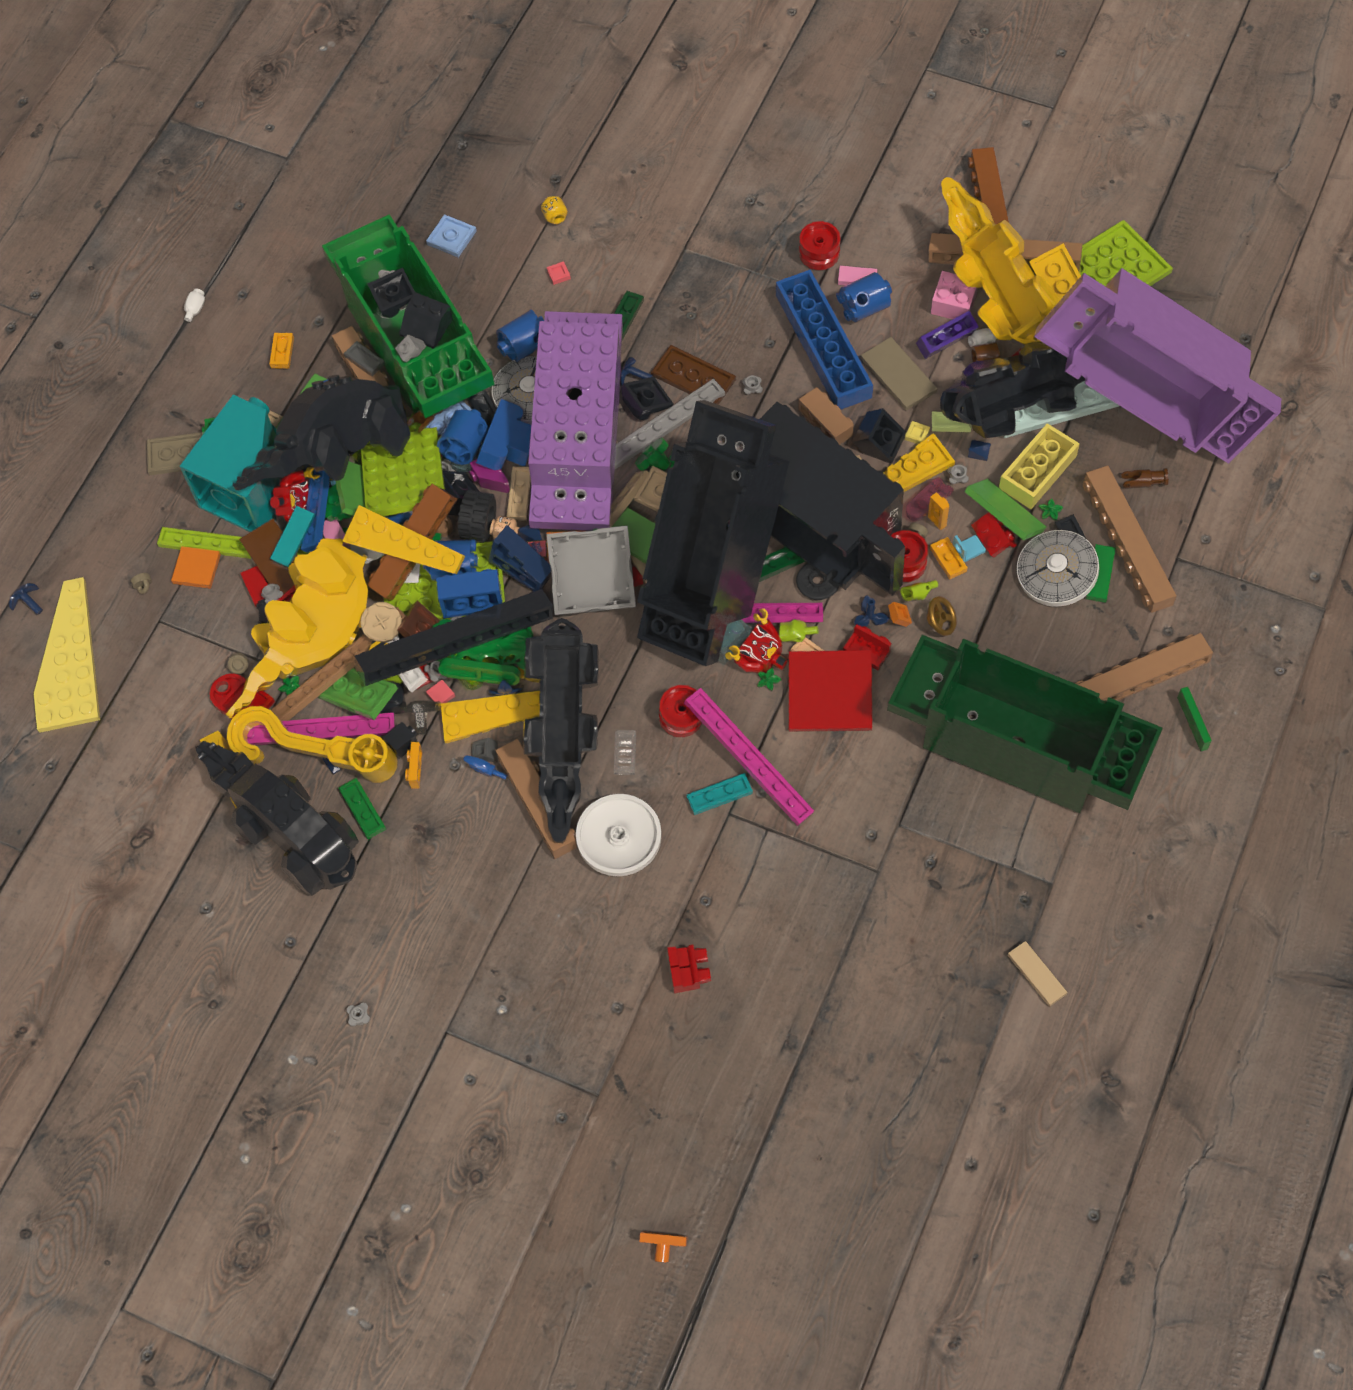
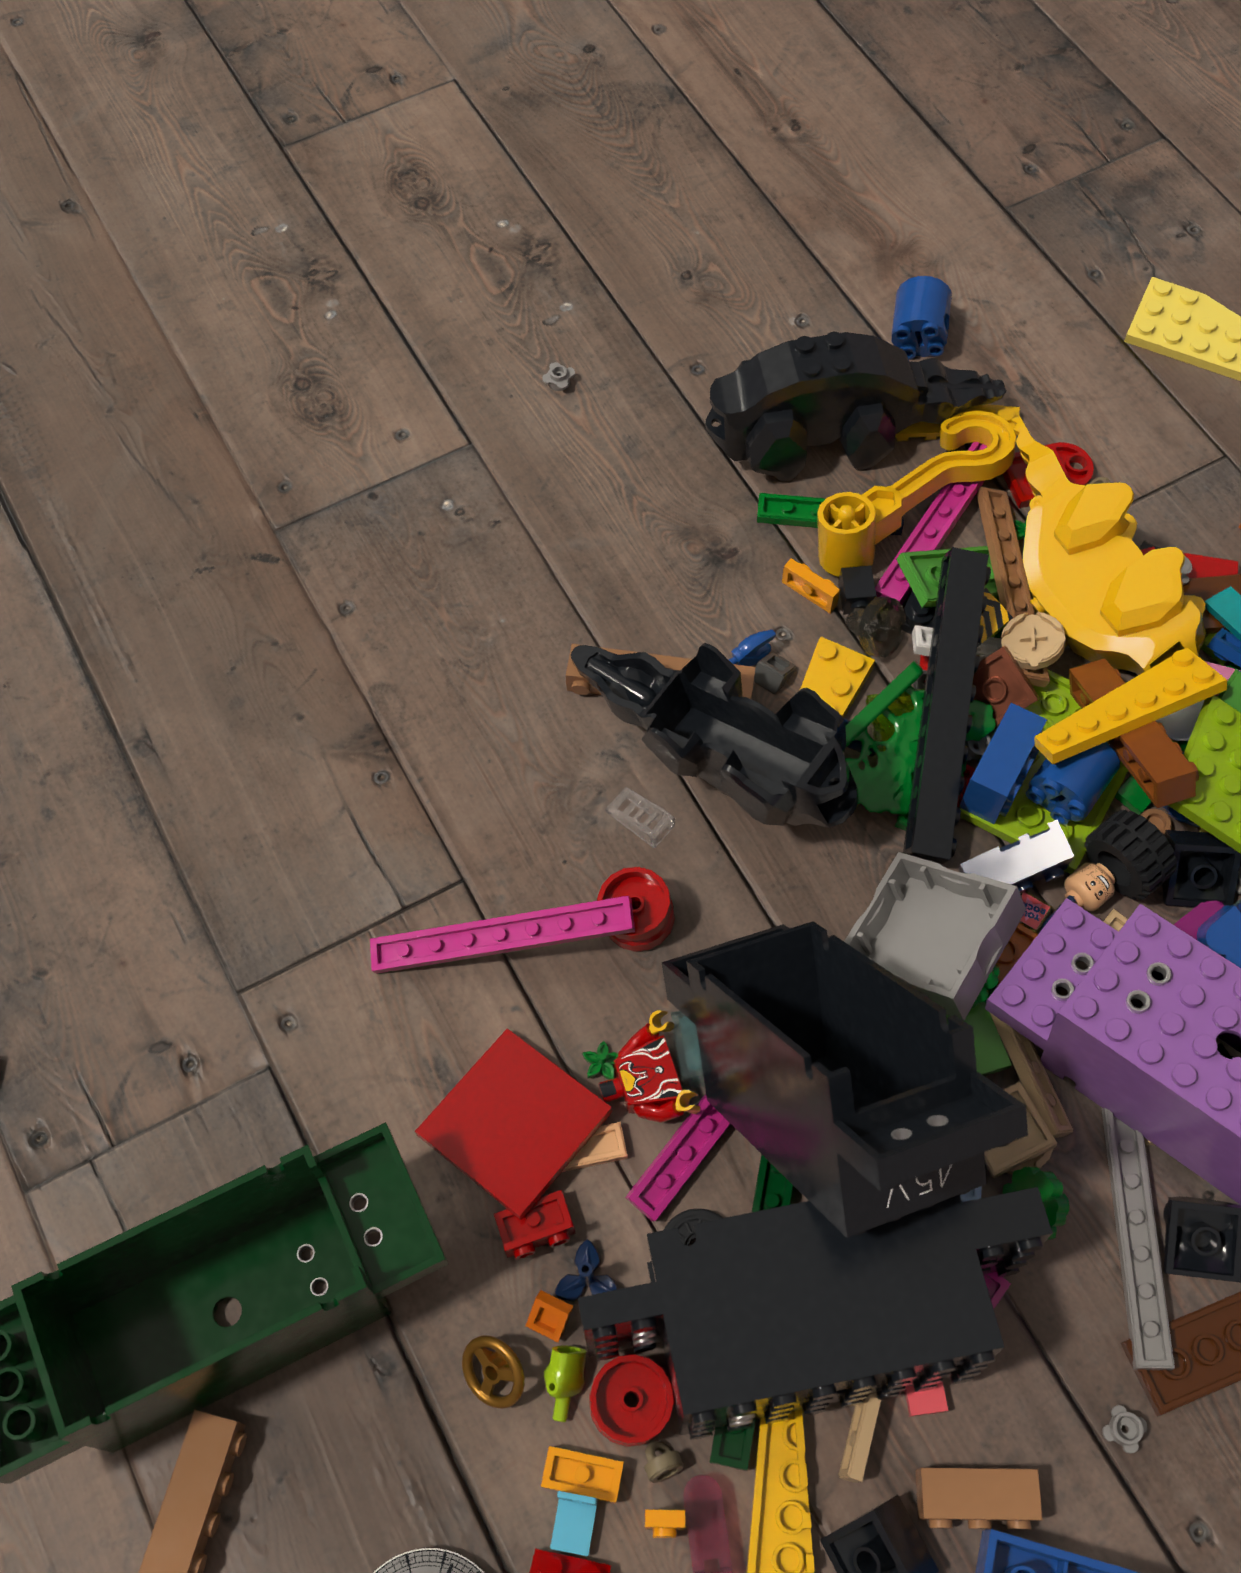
camera: 125 degrees right, 0 degrees up
(166, 827) = (922, 316): none -> blue cylinder
(440, 692) = (888, 668): coral tile -> none
(618, 835) = (533, 728): white dish -> none
(654, 456) = (1079, 1164): green plant -> none
(663, 1243) = (74, 485): orange tile -> none
(684, 968) = (320, 692): red hips -> none
(719, 794) = (496, 880): teal tile -> none
(796, 631) = (639, 1147): lime piece -> none

